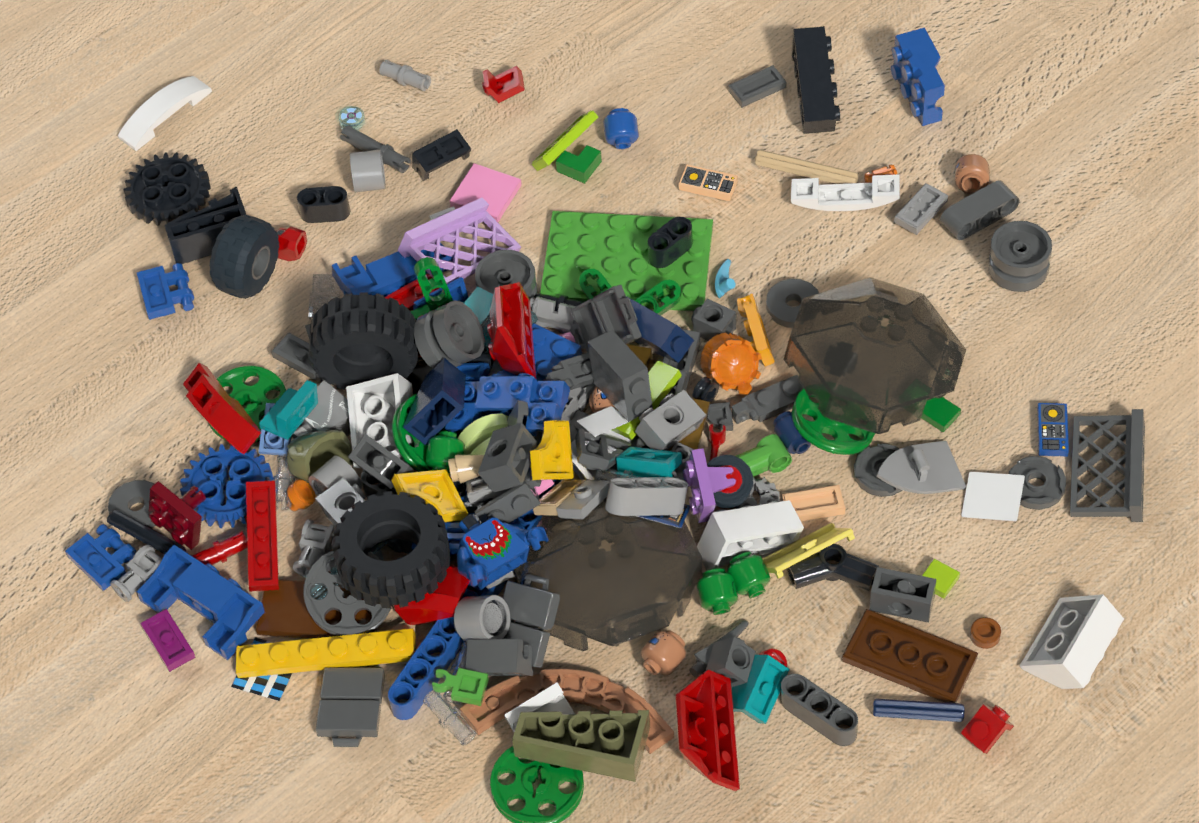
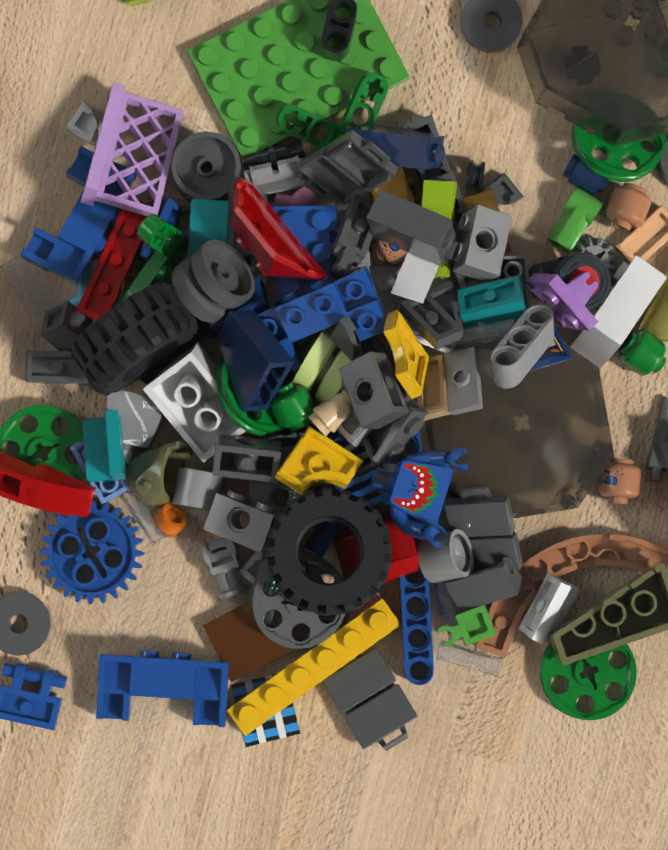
camera: 45 degrees left, 30 degrees up
(139, 571) = (79, 690): light grey connector -> none
(141, 532) = (55, 651): black axle -> none
(168, 640) = (157, 743): magenta plate -> none
(177, 514) = (77, 618): dark red plate -> none
(222, 550) = (137, 624): red pin -> none
(262, 536) = (173, 590): red plate -> none
(440, 153) = (30, 50): black hinge -> none
(492, 186) = (99, 62): bright pink tile -> none
(713, 319) = (443, 82): dark grey brick -> none
(716, 440) = (519, 227): red hand -> none
(717, 591) = (625, 386): green head -> none
(722, 281) = (407, 38): medium azure bar -> none
(731, 362) = (480, 129): orange hair -> none
(754, 326) = (474, 73): light orange hinge -> none
(768, 401) = (540, 145): dark grey hinge -> none
(809, 469) = (628, 207): none -> nougat head

